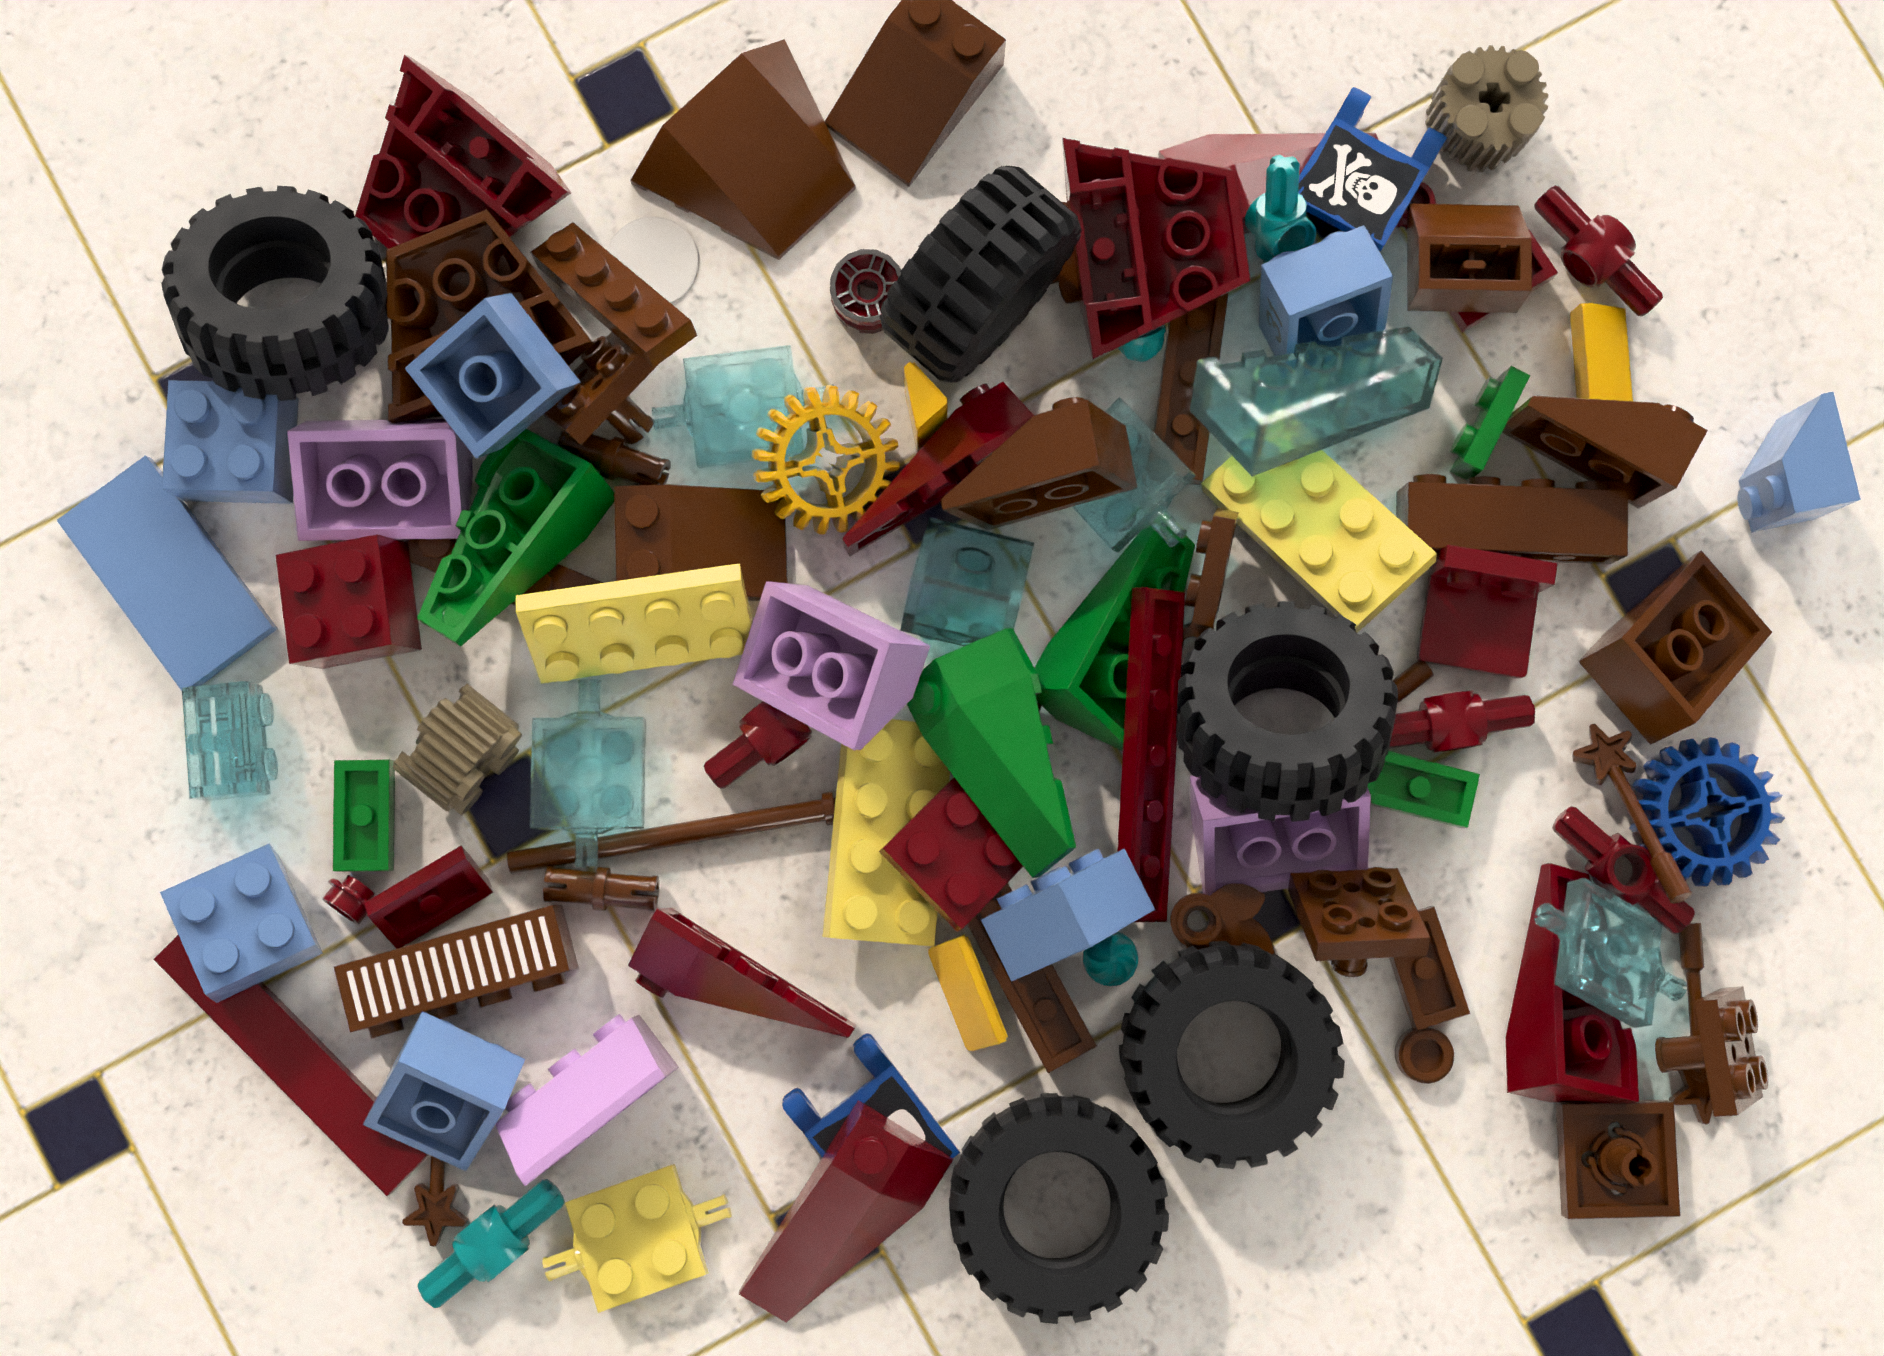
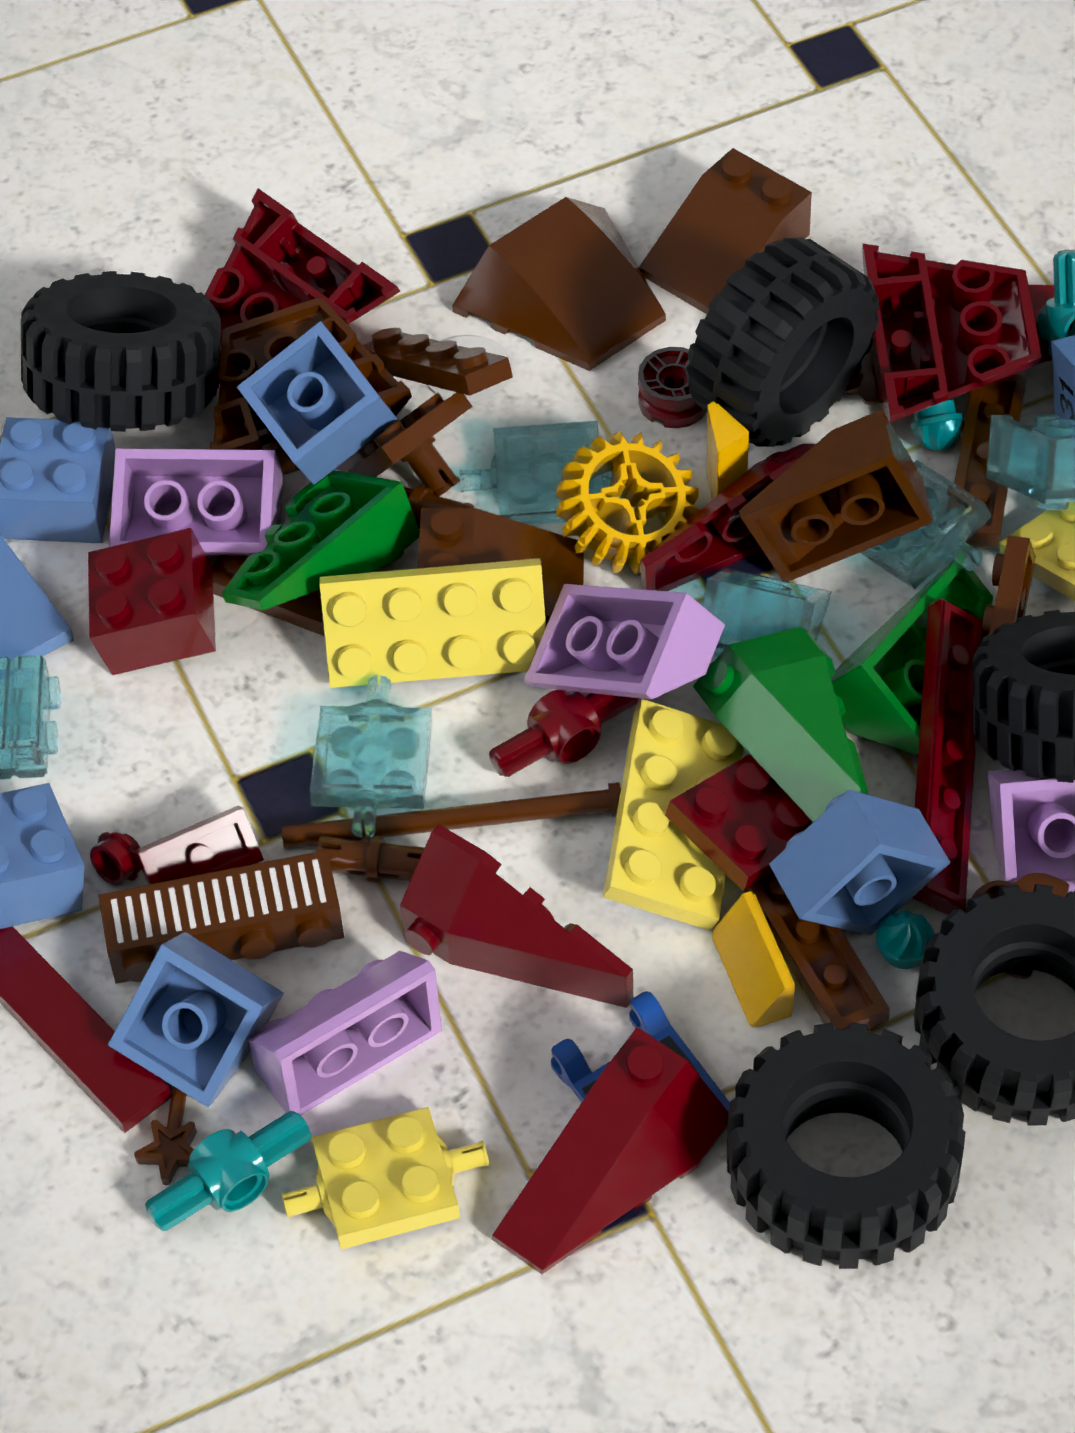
camera: 10 degrees right, 30 degrees down
(363, 815) = (141, 785): green plate -> none
(459, 749) = (247, 718): dark tan brick -> none

